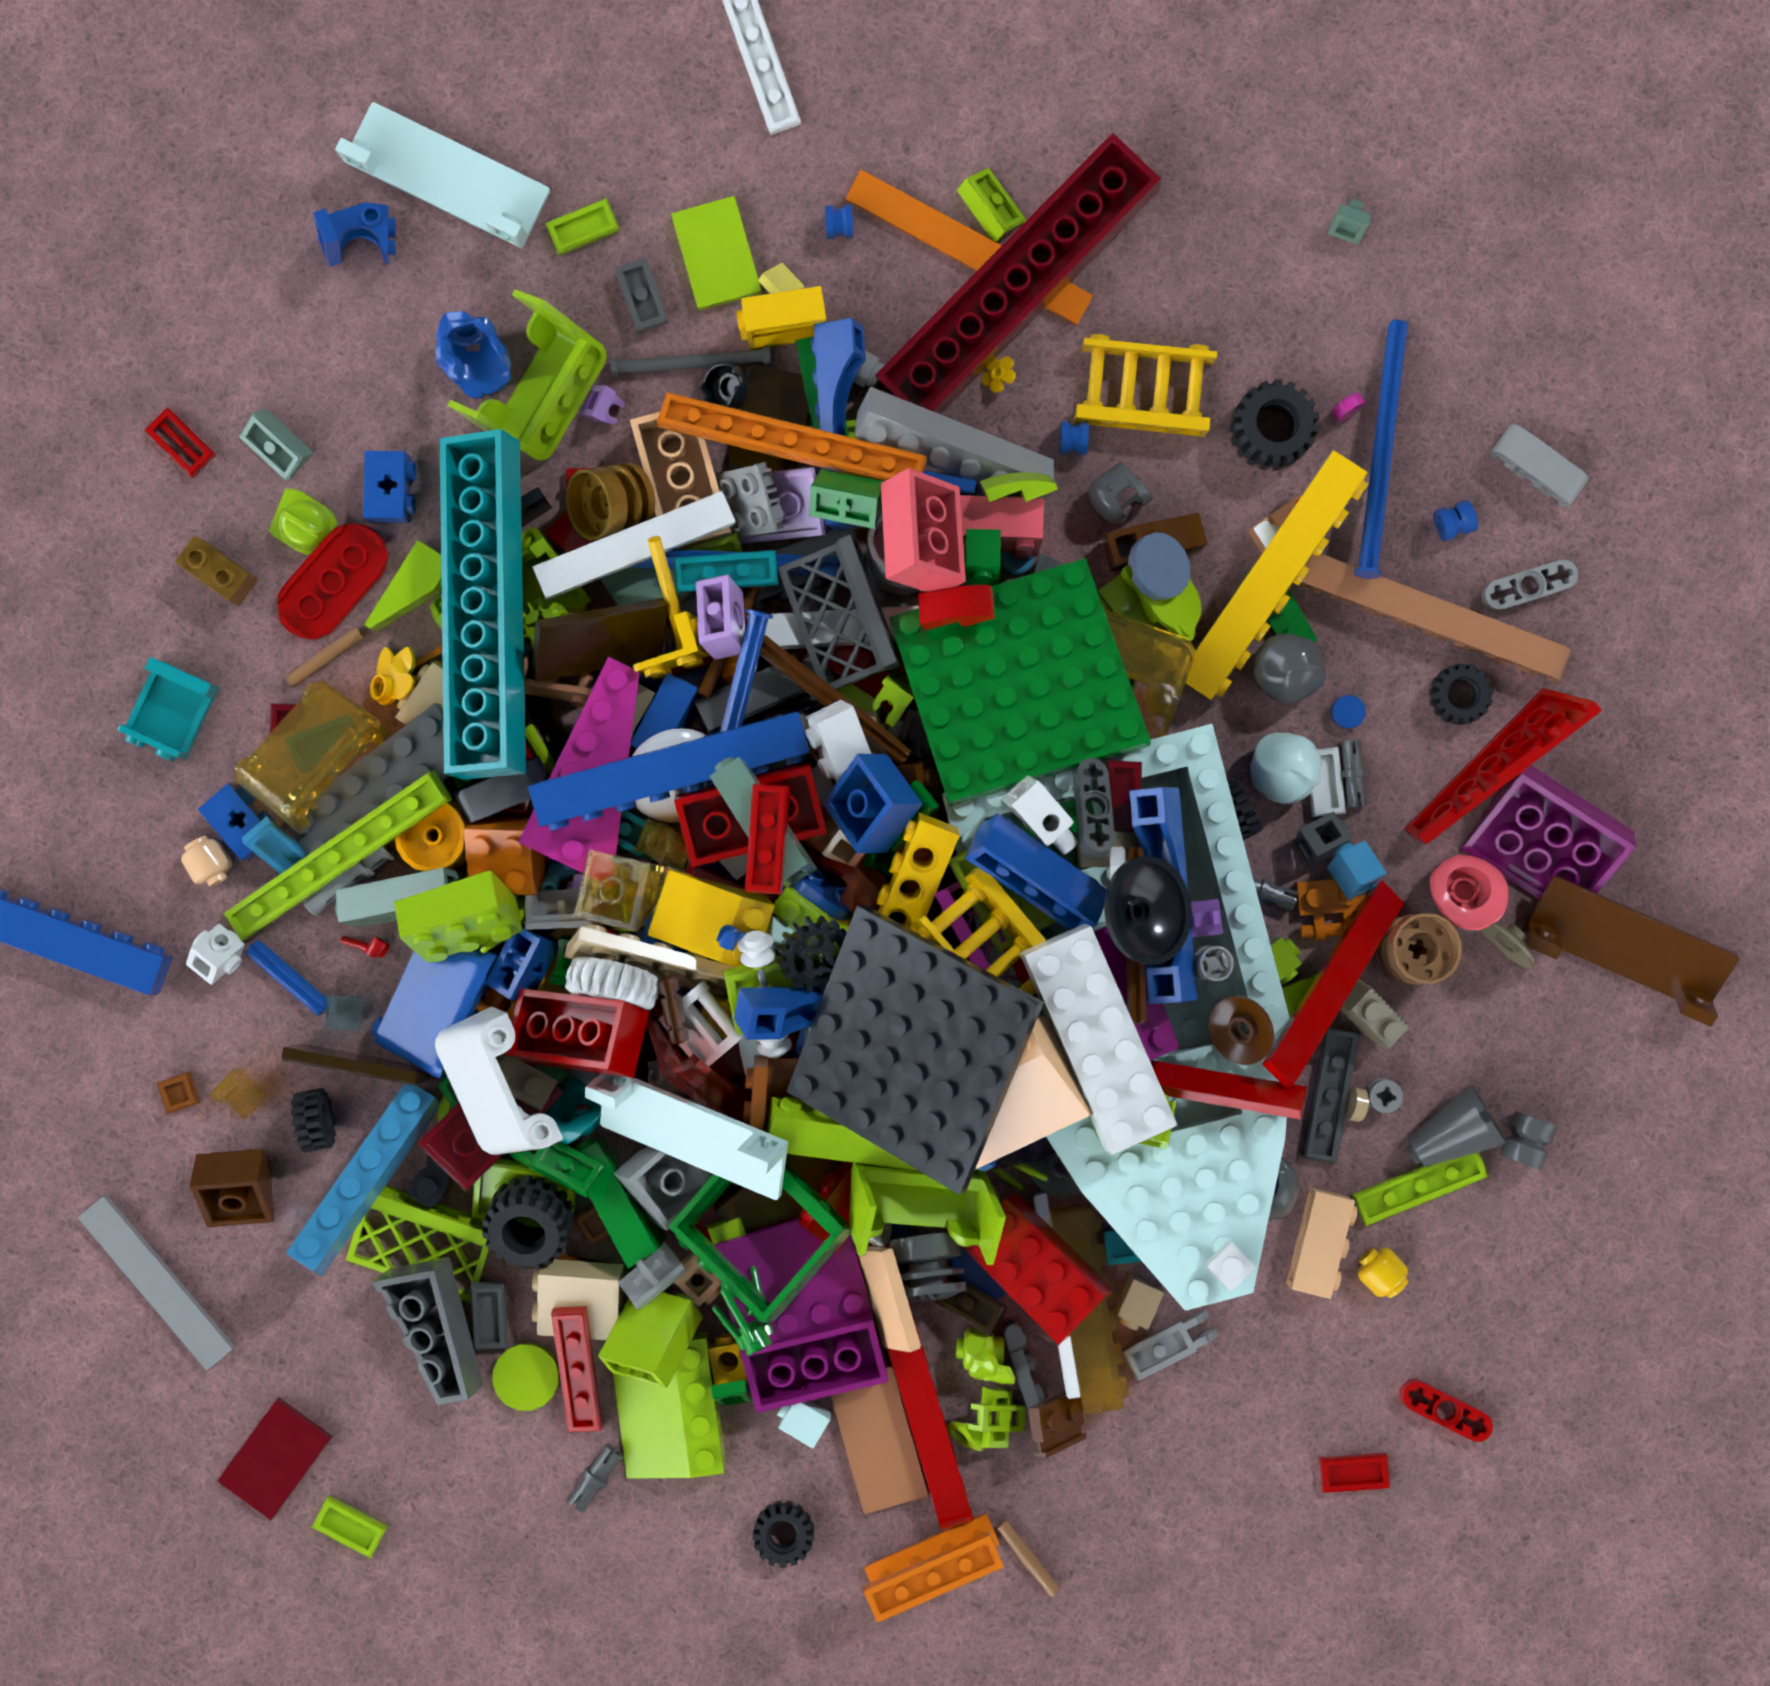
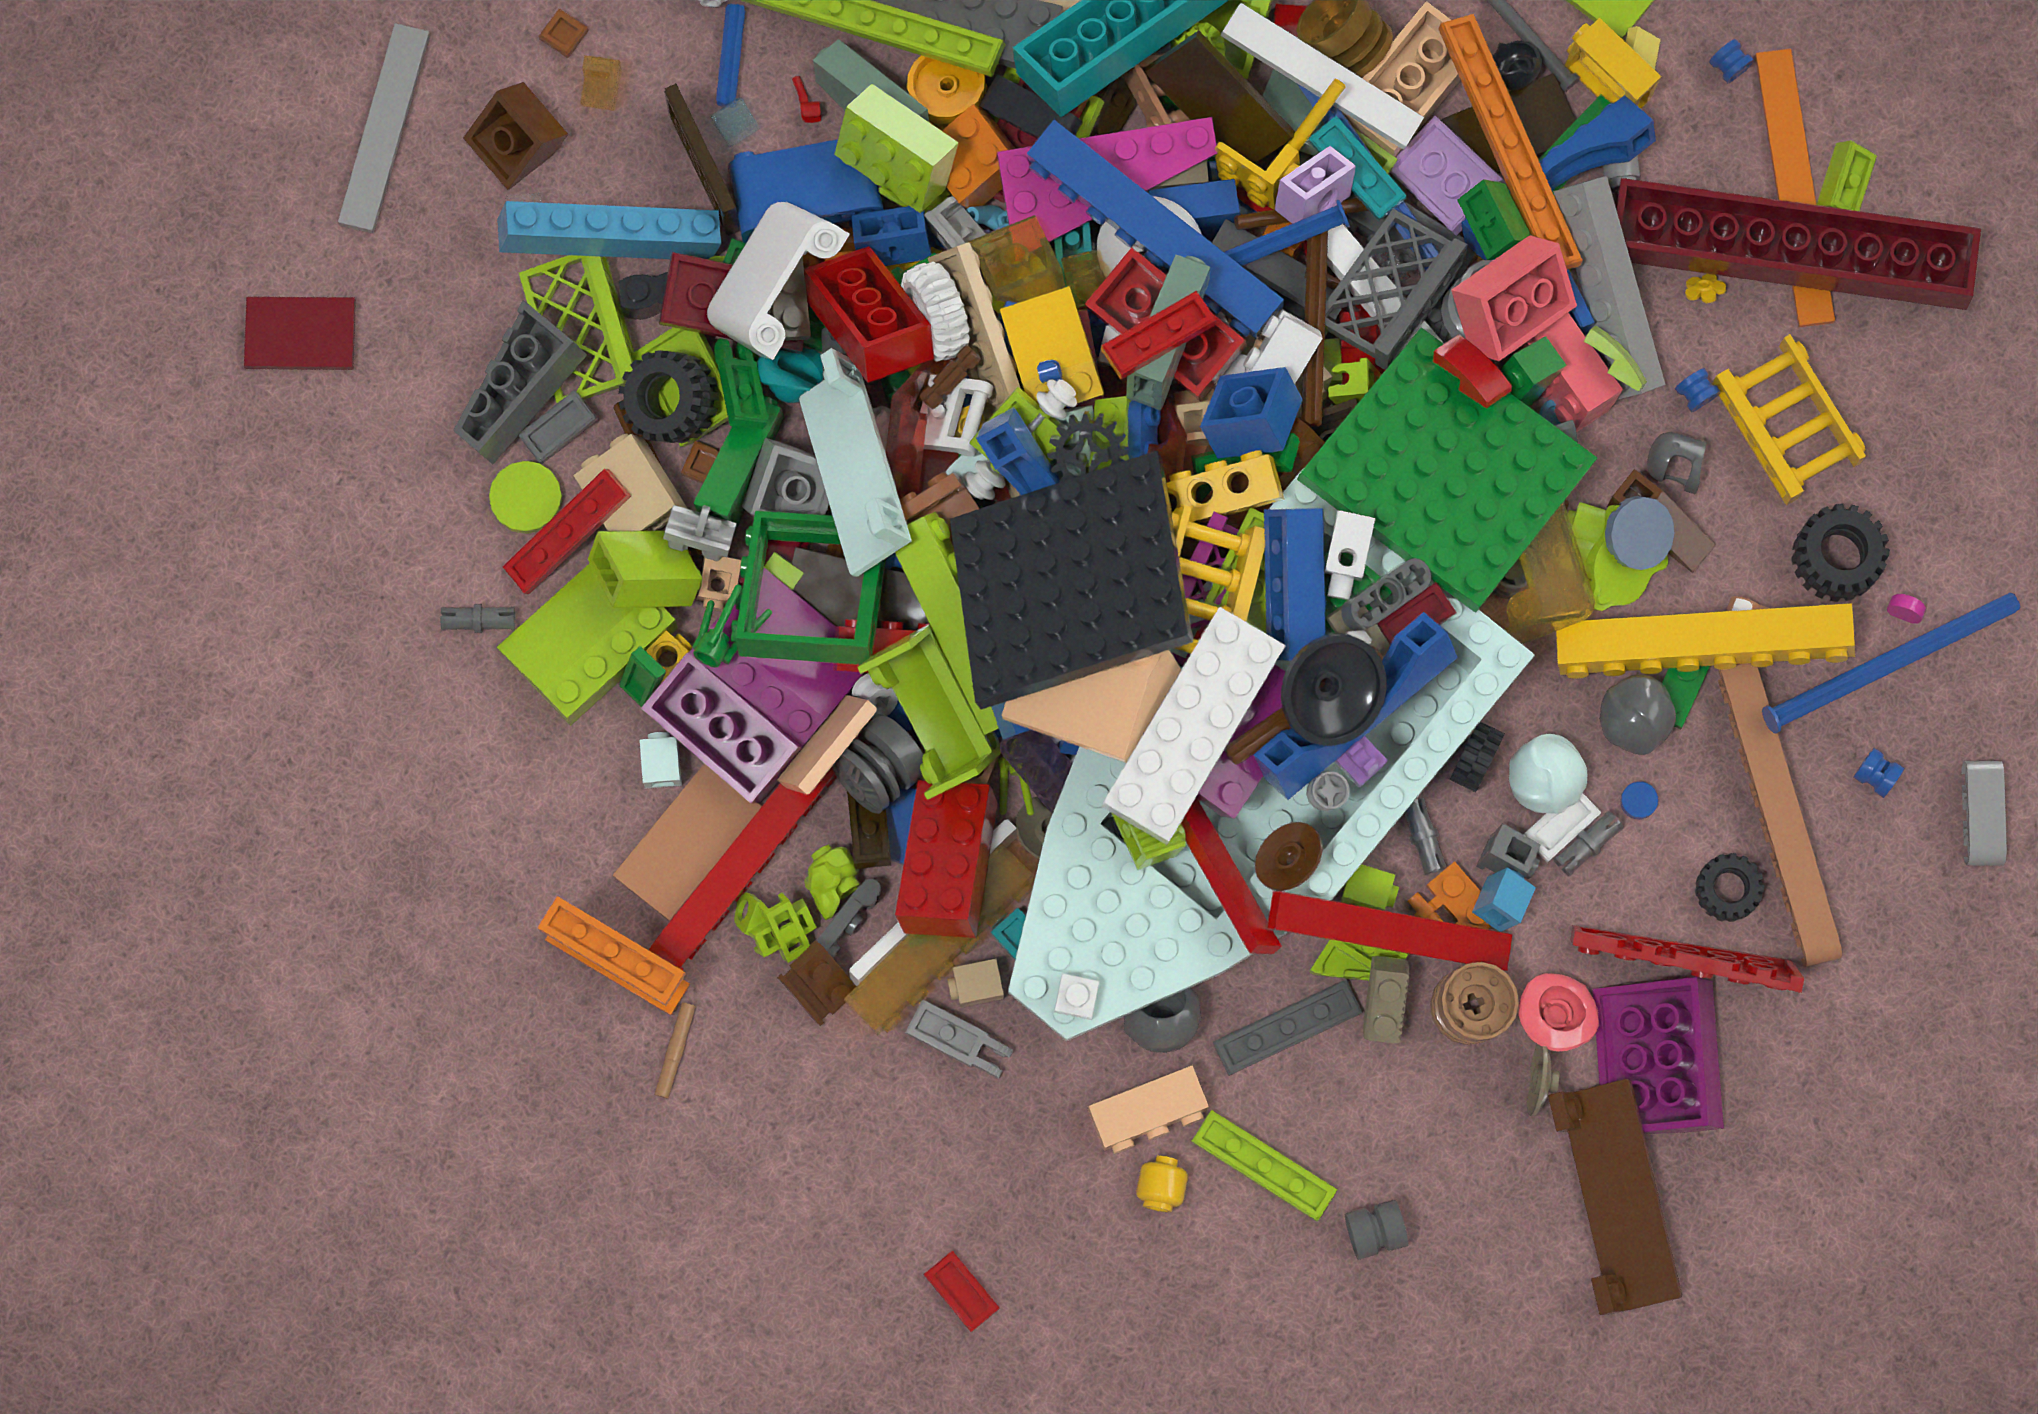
camera: 55 degrees right, 10 degrees down
(313, 1120) = (625, 157): black tyre -> none
(349, 1526) = (284, 438): lime tile -> none
(364, 869) = (870, 50): light grey pin -> none
(749, 500) = (1431, 146): light grey hinge -> none
(778, 1553) = (545, 794): black tyre -> none
(1357, 1104) = (1295, 1054): tan tile -> none
(1378, 1094) = (1318, 1081): light grey wheel -> none
(1450, 1423) = (1082, 1304): red beam -> none
(1456, 1131) = (1338, 1156): dark grey cone -> none
(1549, 569) = (1887, 877): light grey beam -> none

